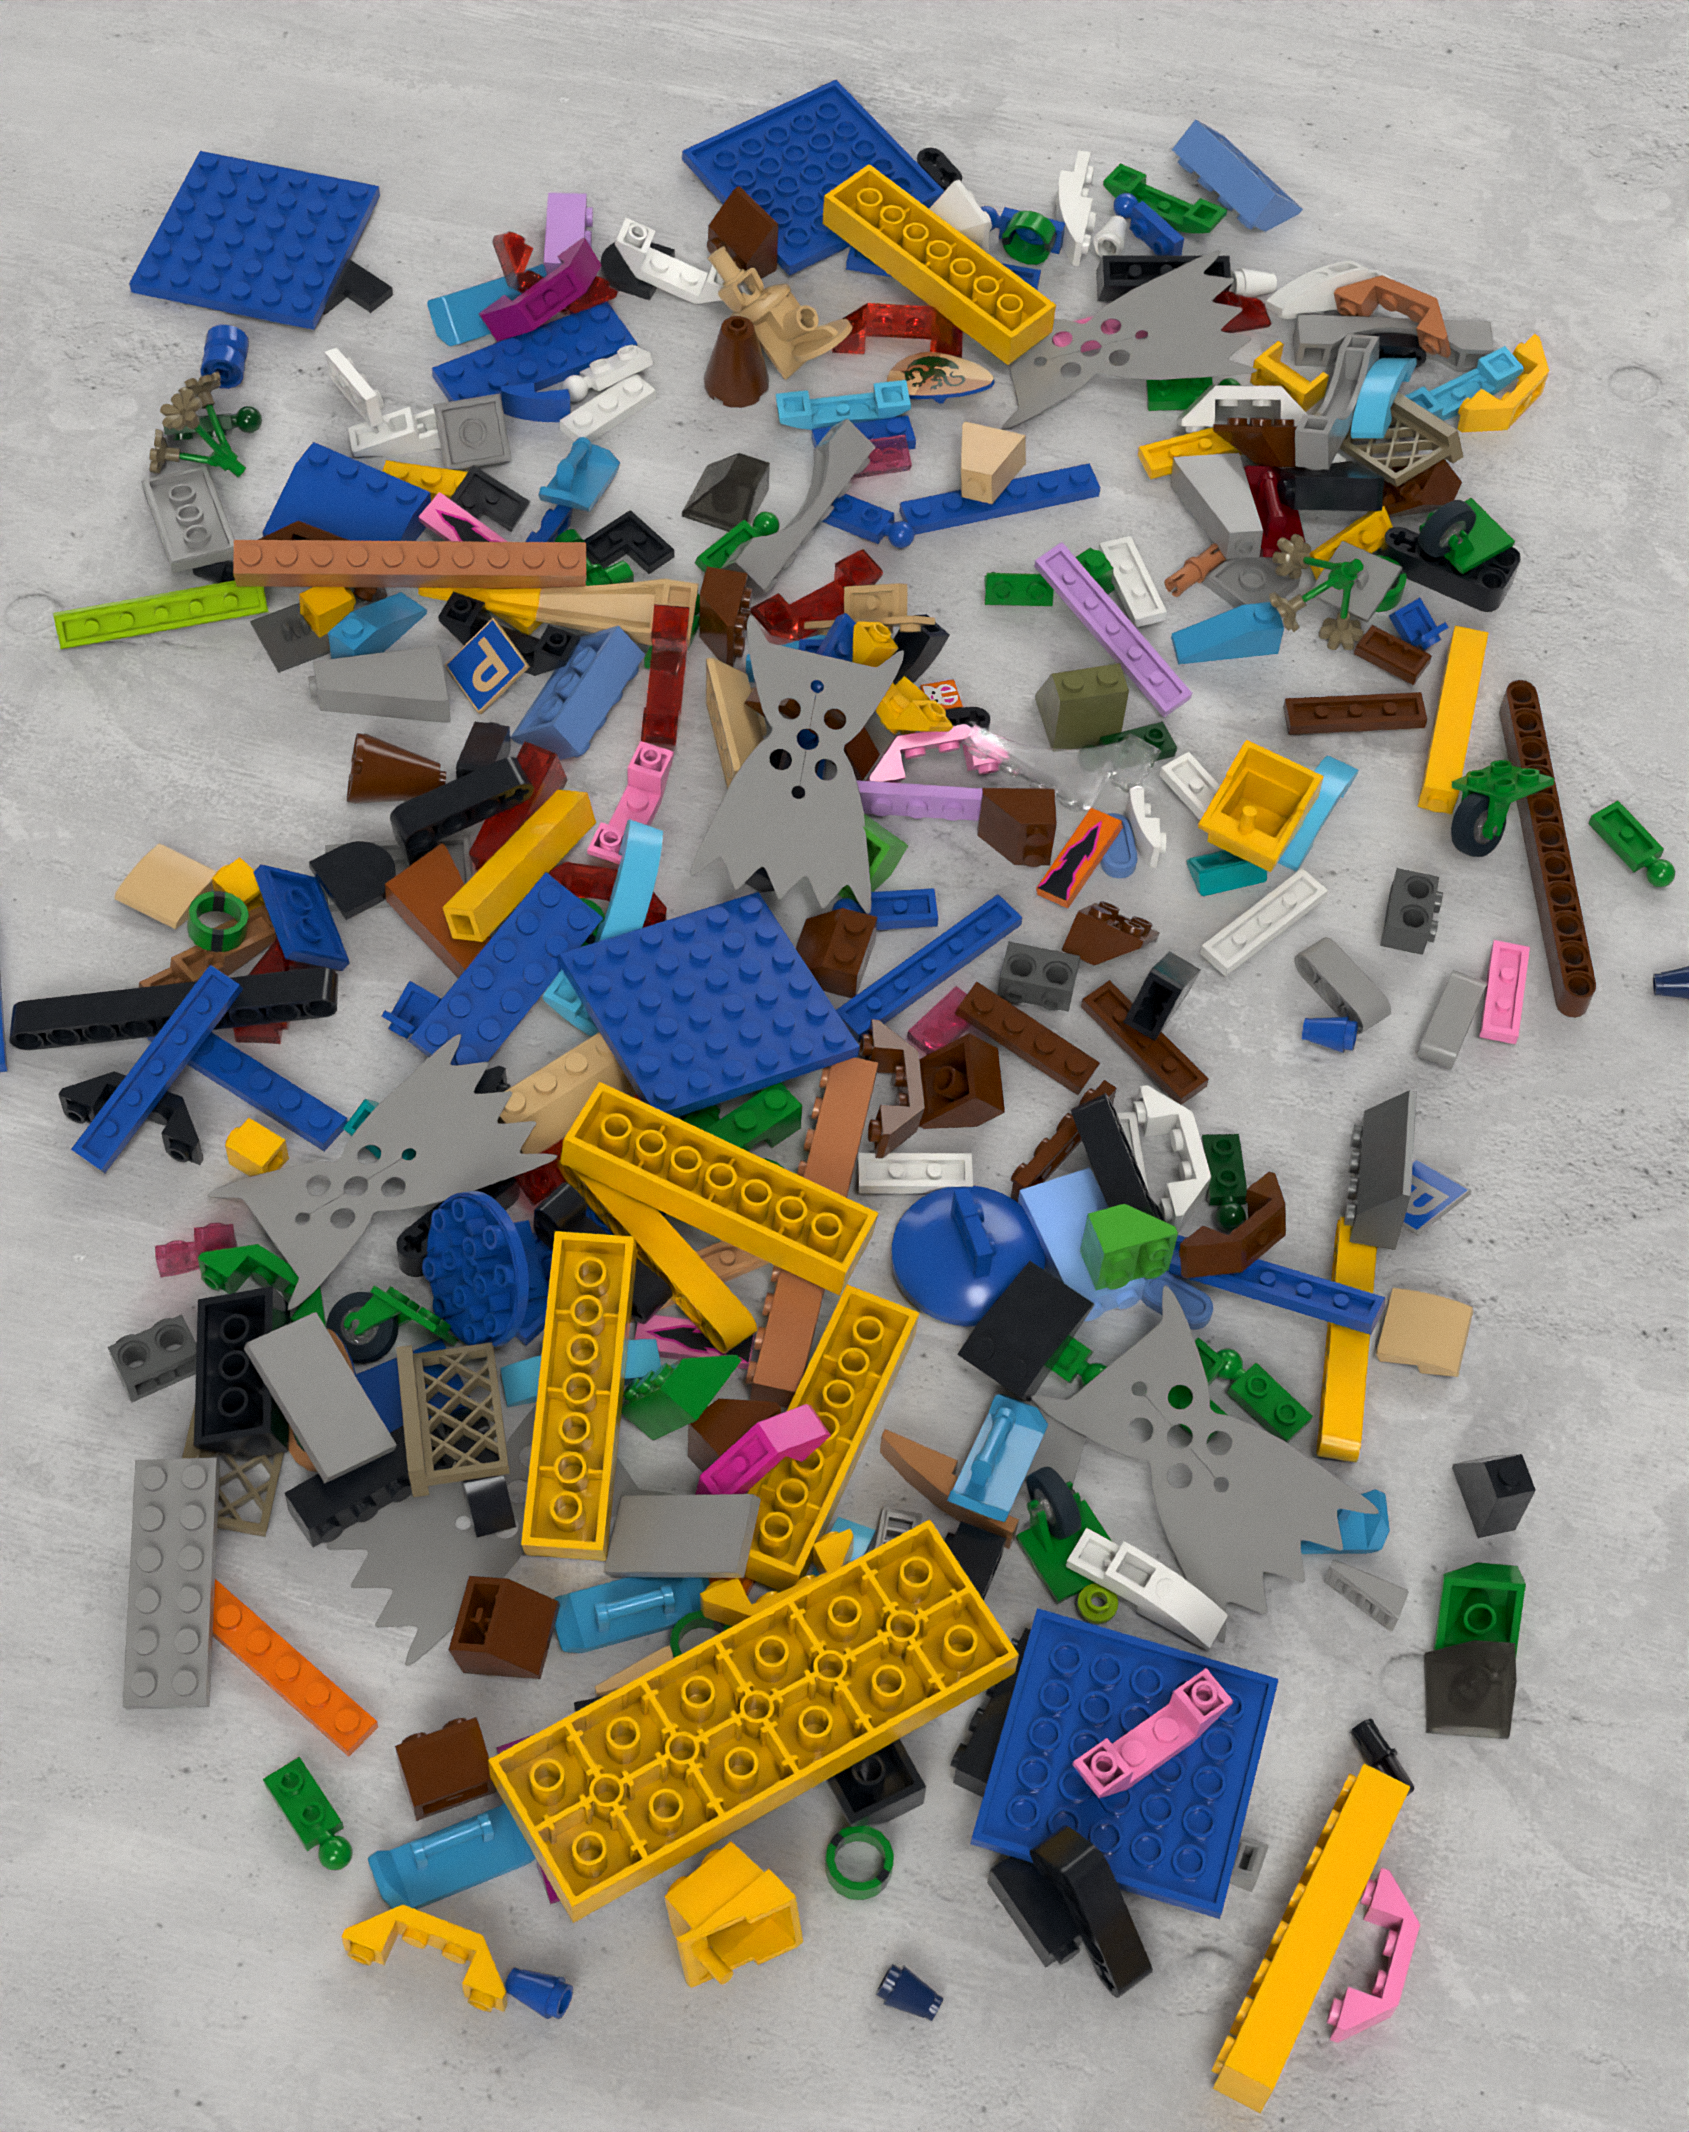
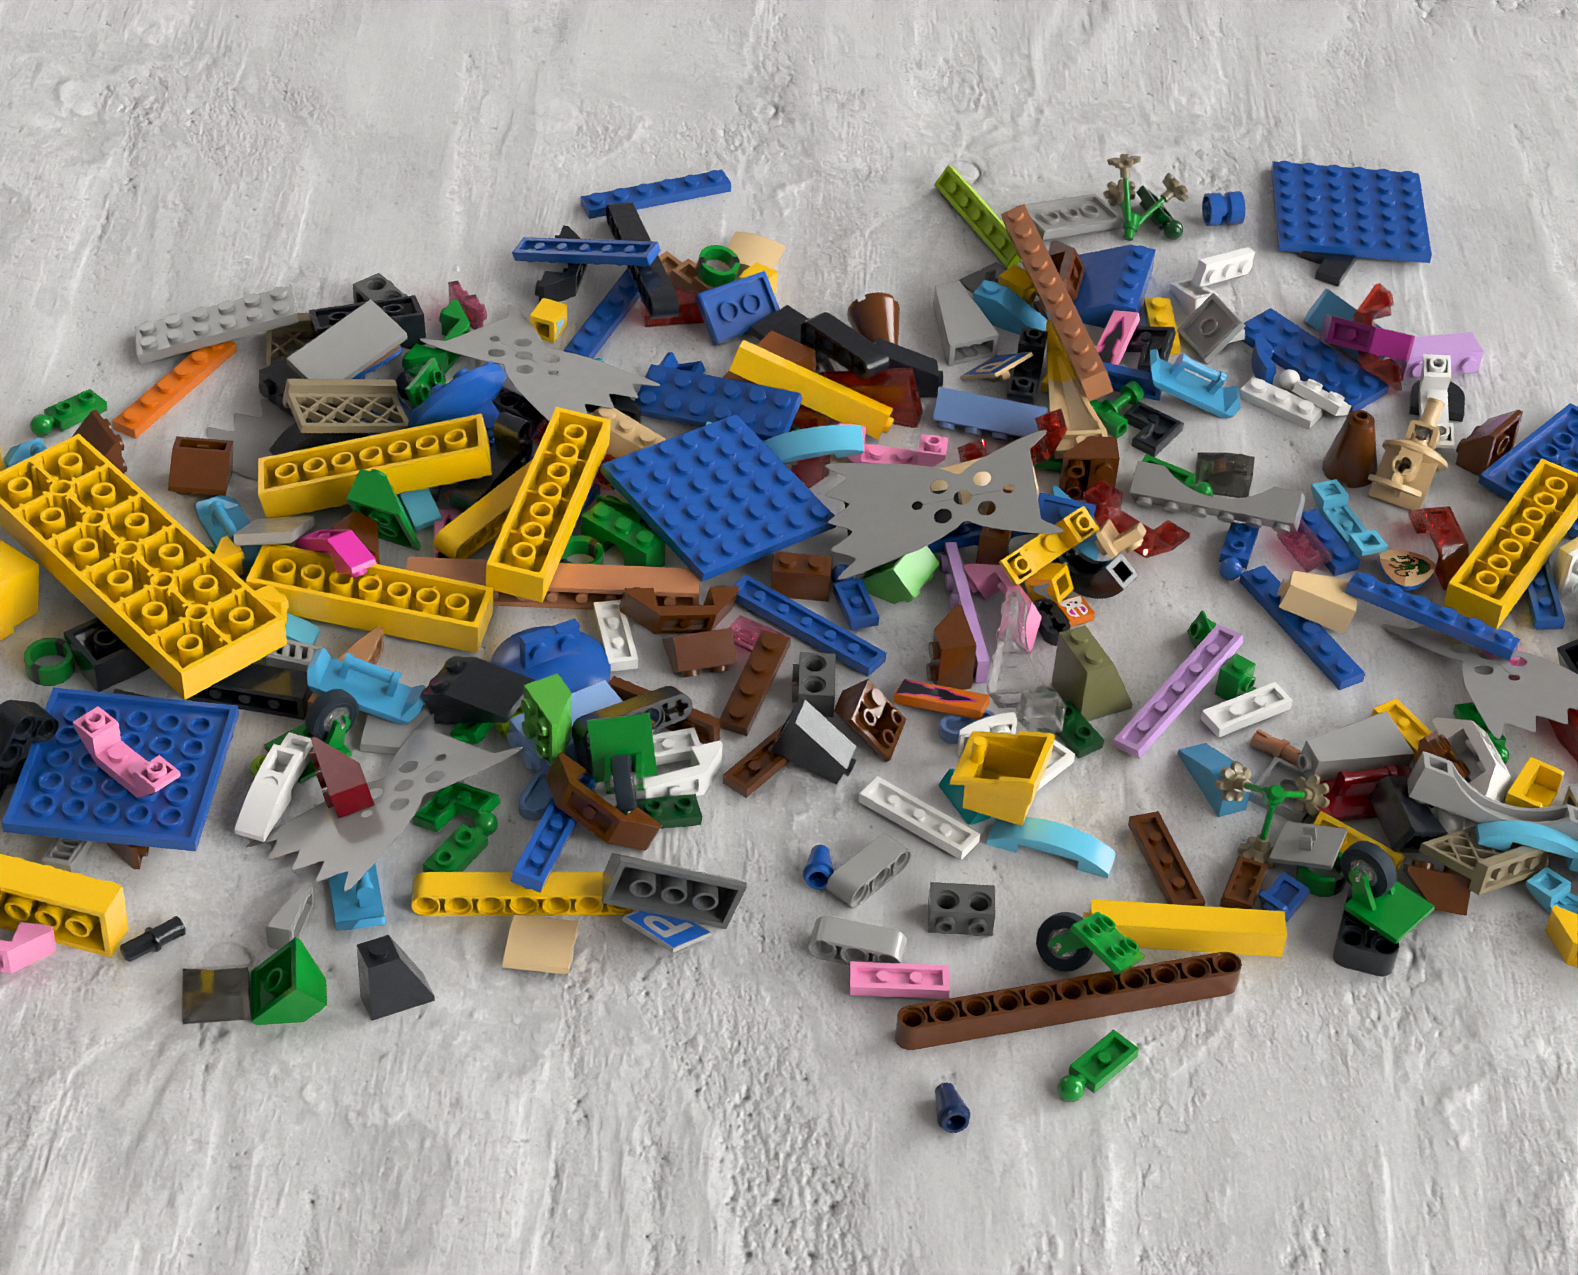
camera: 80 degrees right, 15 degrees down
(1038, 373) = (1433, 616): none -> blue plate
(1172, 1501) = (343, 777): none -> dark red slope
(1190, 1187) = (622, 755): none -> green plate

